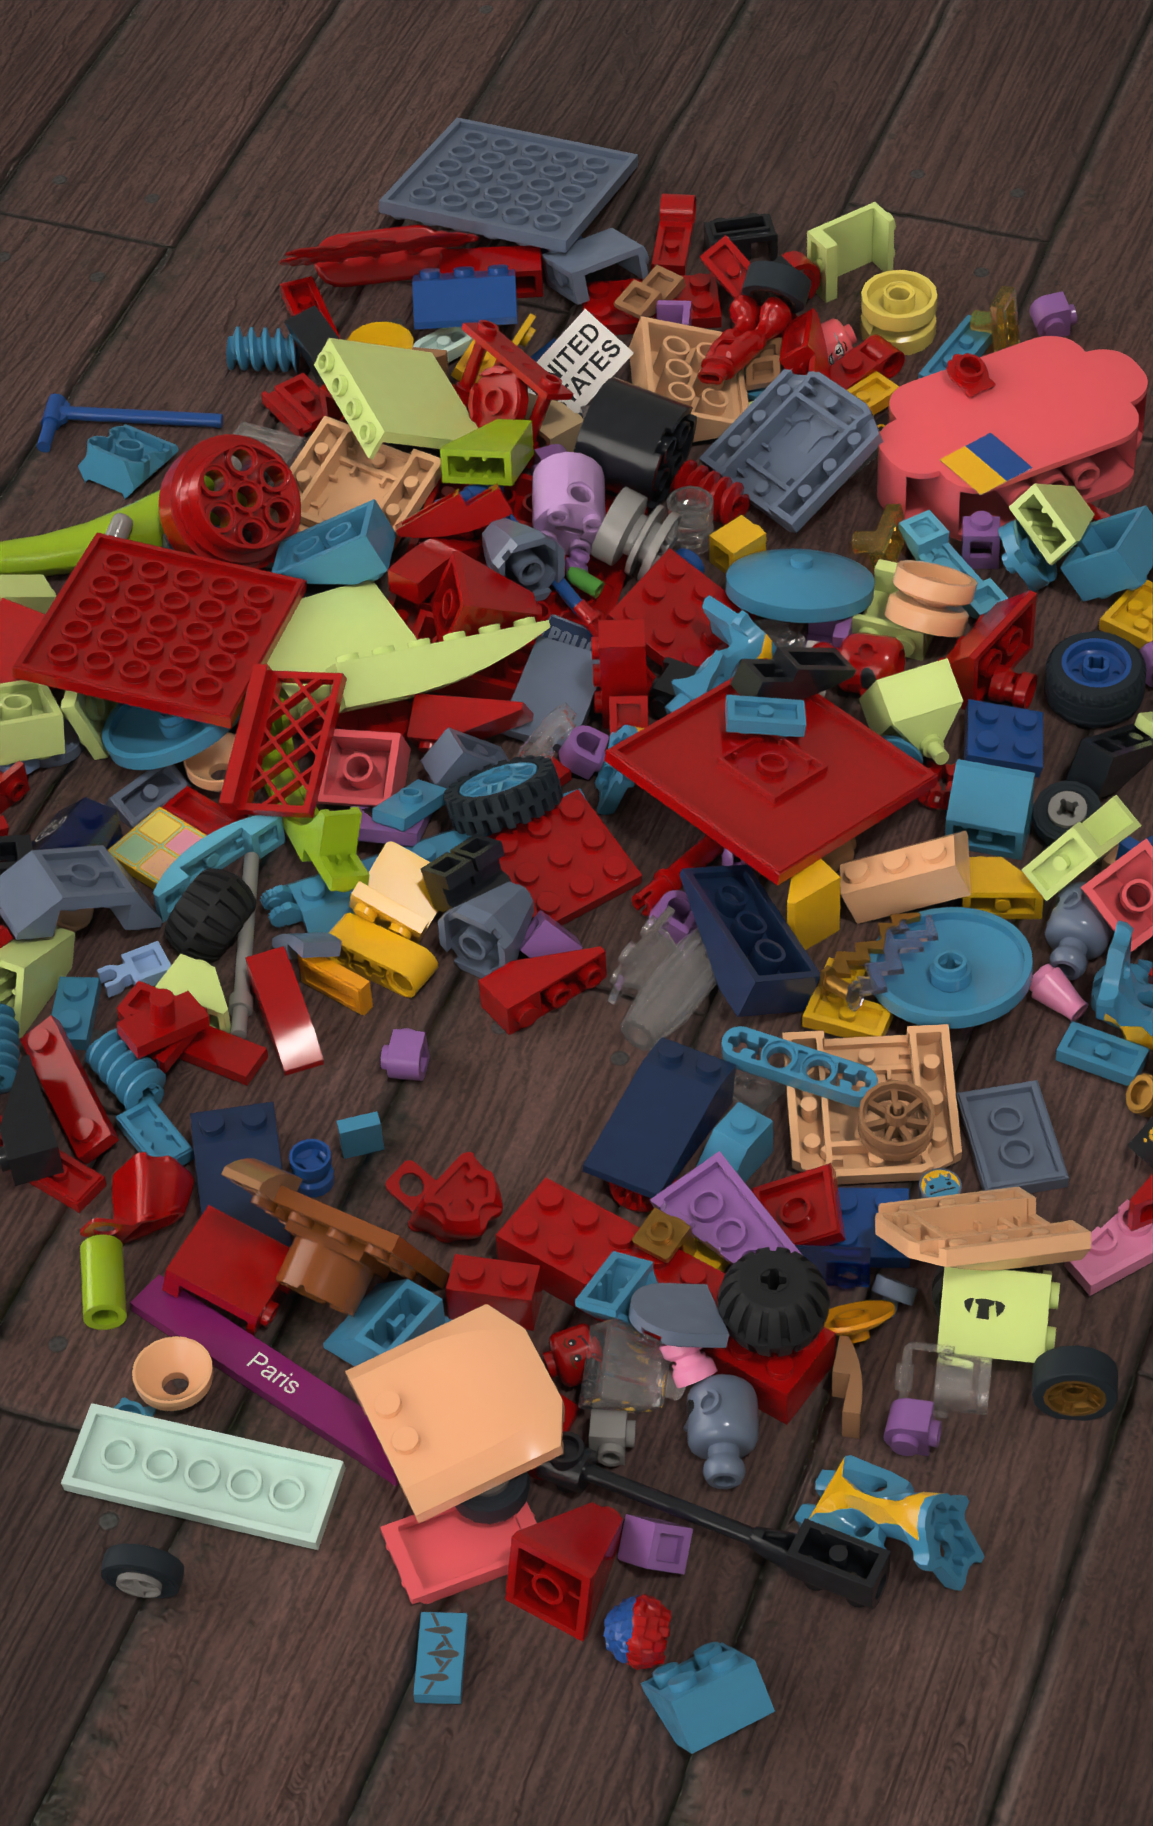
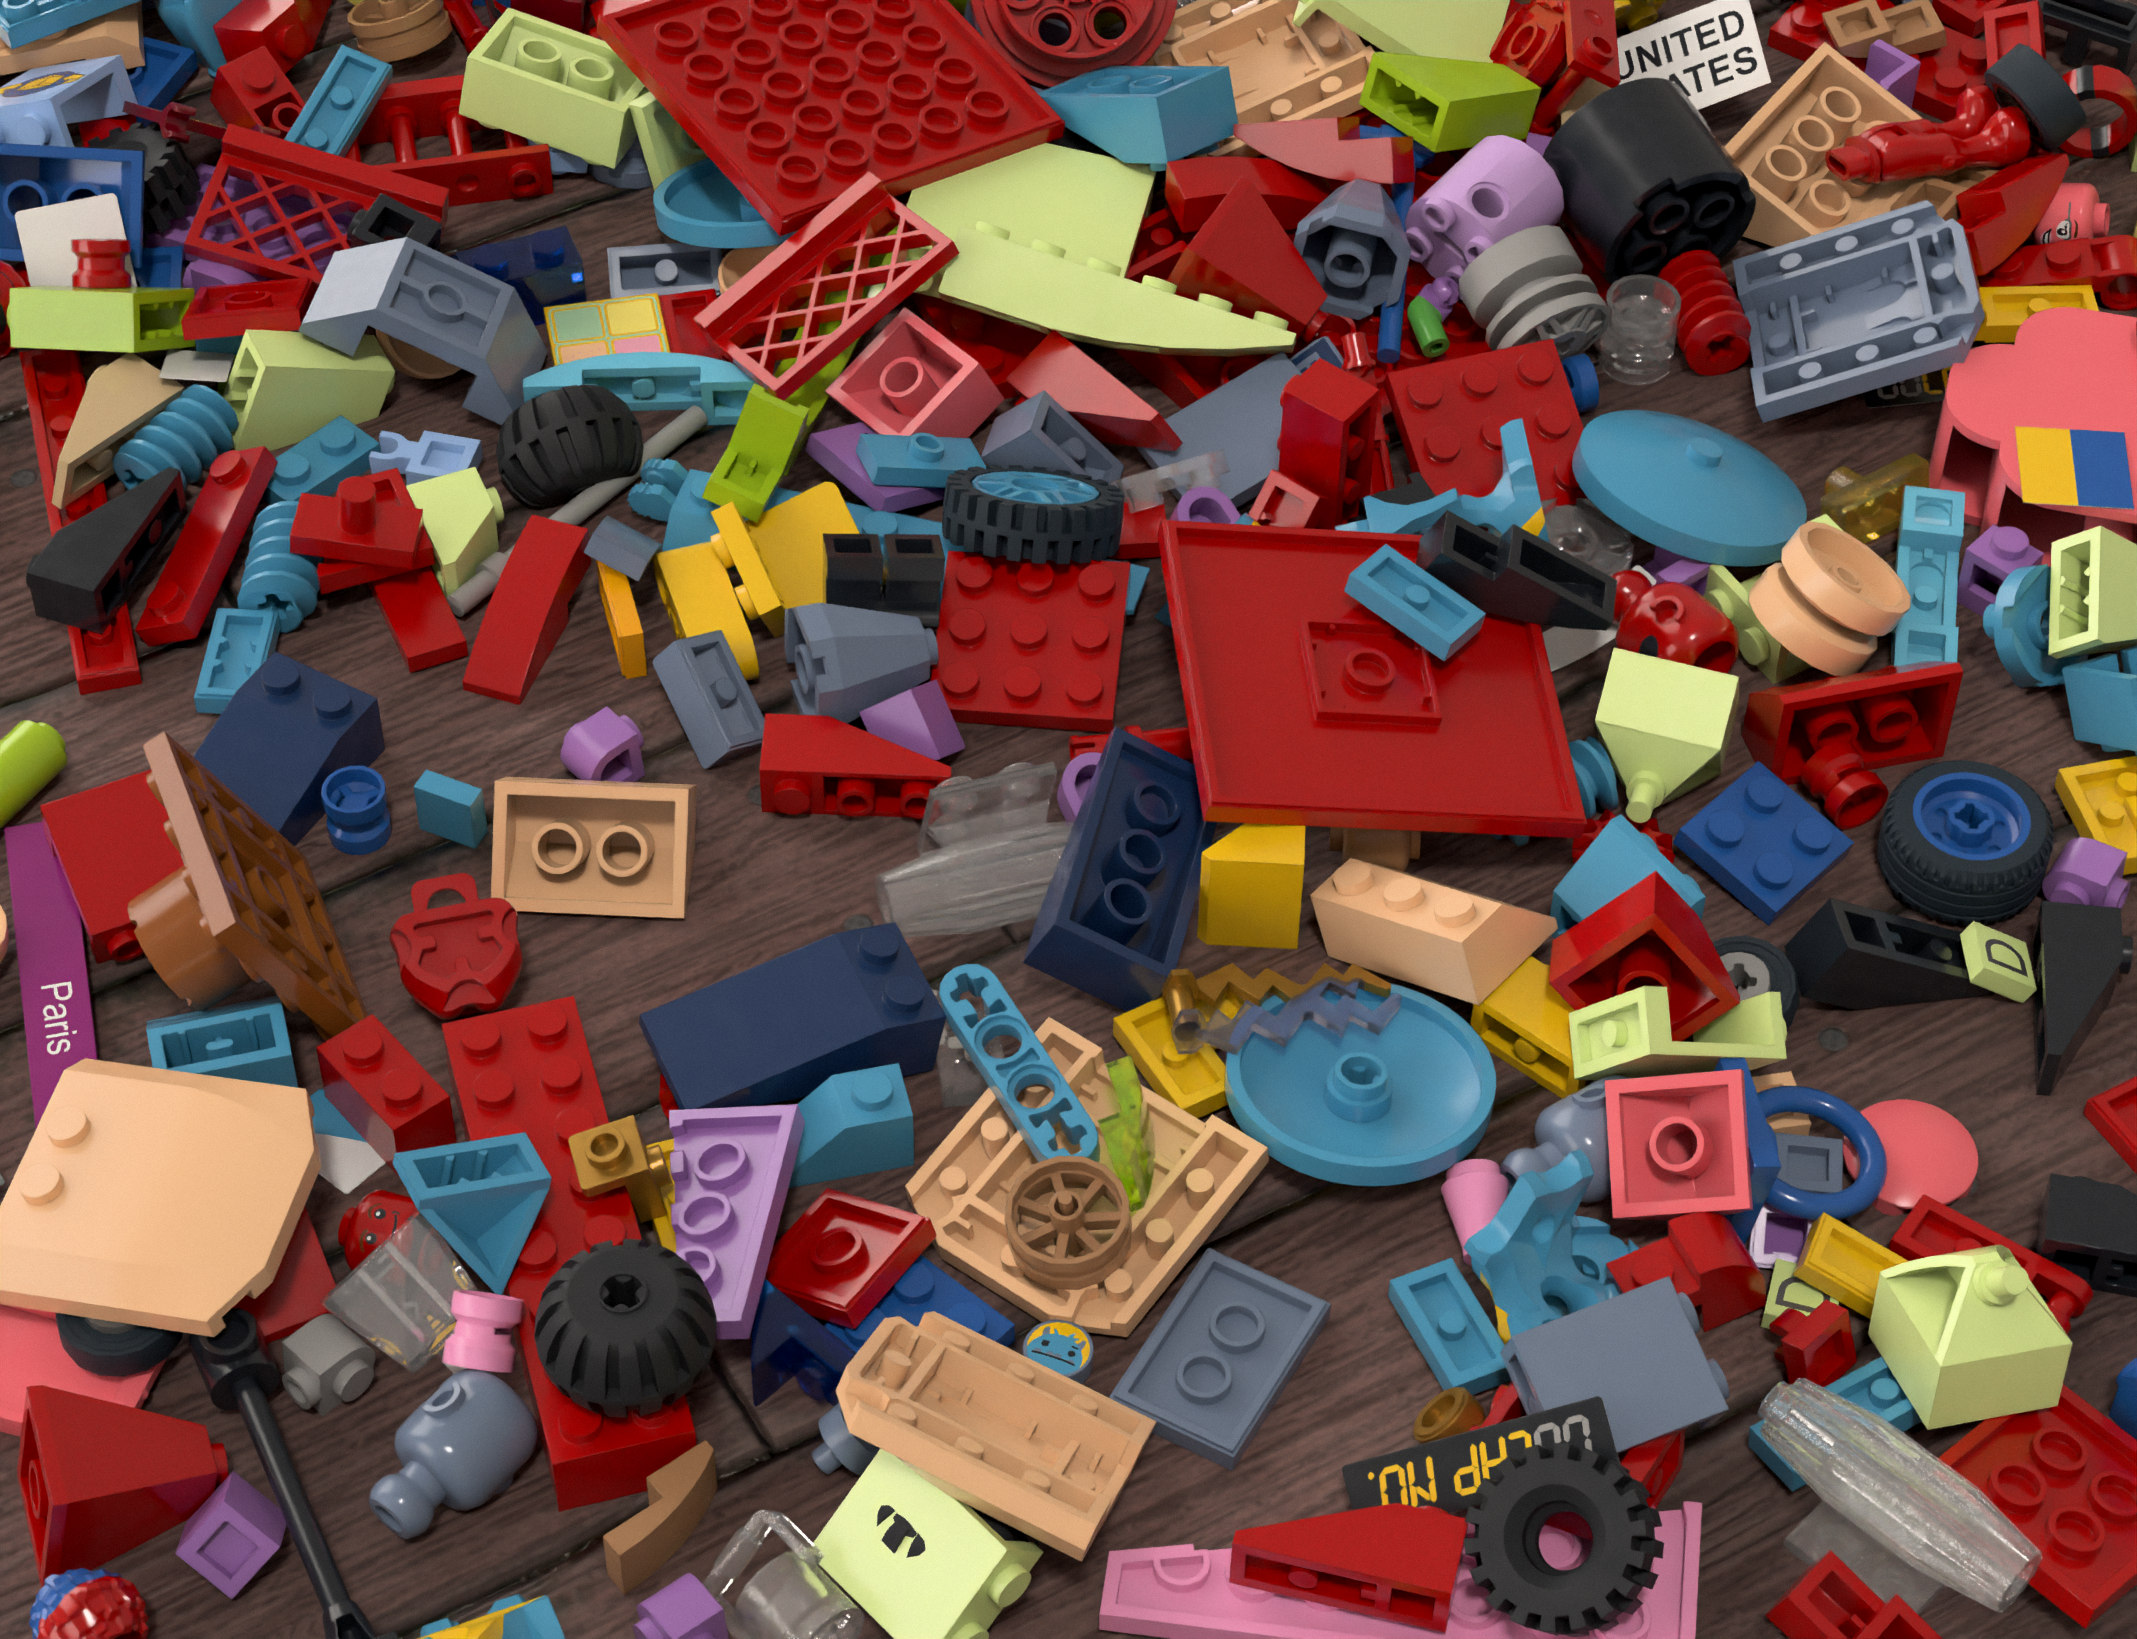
camera: 35 degrees right, 0 degrees up
(145, 1197) = (131, 712): red piece -> none
(260, 1177) = (166, 744): medium nougat slope -> none
(434, 993) = (710, 697): none -> sand blue slope
(455, 1104) = (593, 846): none -> light nougat slope
(679, 1314) = (494, 1259): sand blue tile -> none
(735, 541) = (1674, 387): yellow brick -> none
(858, 1318) = (756, 1434): light orange dish -> none
(877, 1051) = (1130, 1133): none -> clear neon green slope
(1028, 821) = (1645, 941): none -> red slope

